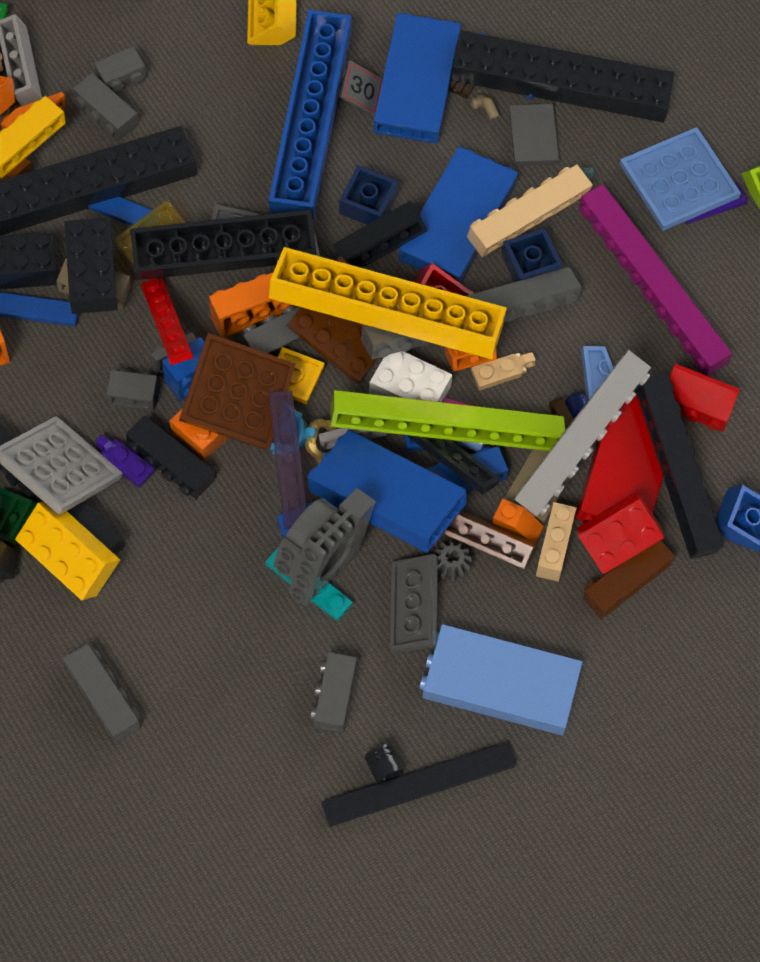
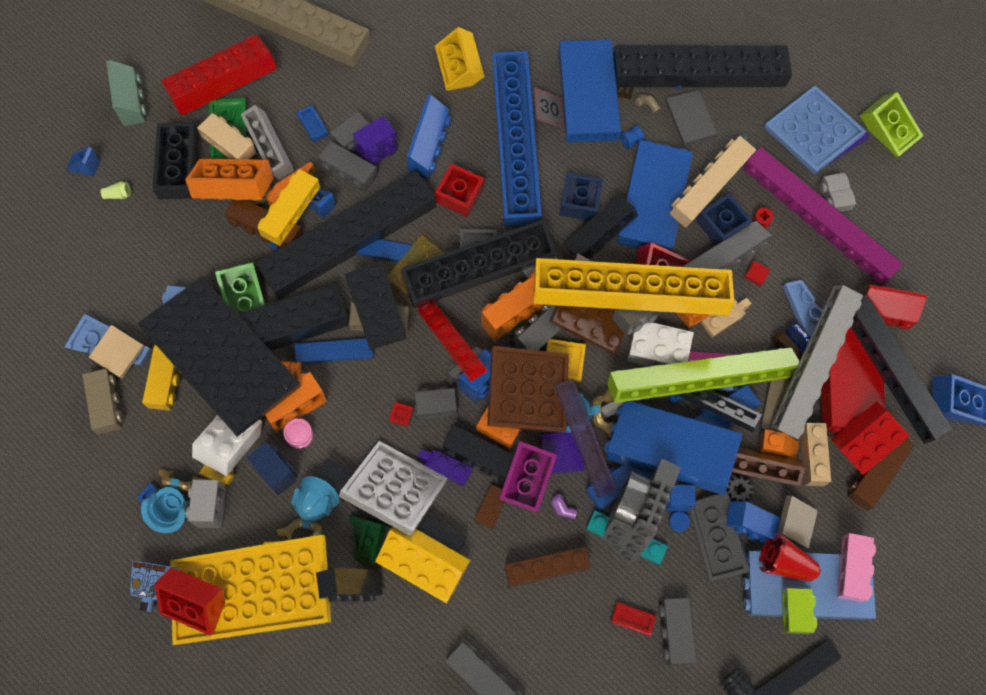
camera: 15 degrees left, 5 degrees up
(64, 142) = (322, 203): none -> blue slope
(78, 50) = (312, 123): none -> blue tile
(89, 393) = (401, 414): none -> red plate
(144, 84) = (375, 141): none -> dark purple brick
(164, 515) = (490, 508): none -> reddish brown tile
(206, 591) = (547, 567): none -> reddish brown brick
(207, 92) = (428, 137): none -> slope
(210, 487) = (528, 477): none -> magenta slope
(227, 159) = (459, 190): none -> red brick
(243, 536) = (561, 508): none -> medium lavender arm
(258, 476) = (567, 453): none -> dark purple tile
(289, 670) = (633, 619): none -> red tile
(374, 580) = (679, 522): none -> blue tile
(377, 550) = (681, 499): none -> blue brick
(451, 142) = (632, 137): none -> blue wheel
(456, 594) = (752, 521): none -> blue brick
(474, 696) = (798, 611): none -> lime brick
(480, 640) = (785, 559): none -> red cone
(510, 608) = (797, 521): none -> dark tan tile
(555, 329) = (757, 273): none -> red tile
(557, 666) = (856, 567): none -> bright pink brick
(585, 271) = (767, 214): none -> red wheel
(682, 256) = (837, 191): none -> light grey brick

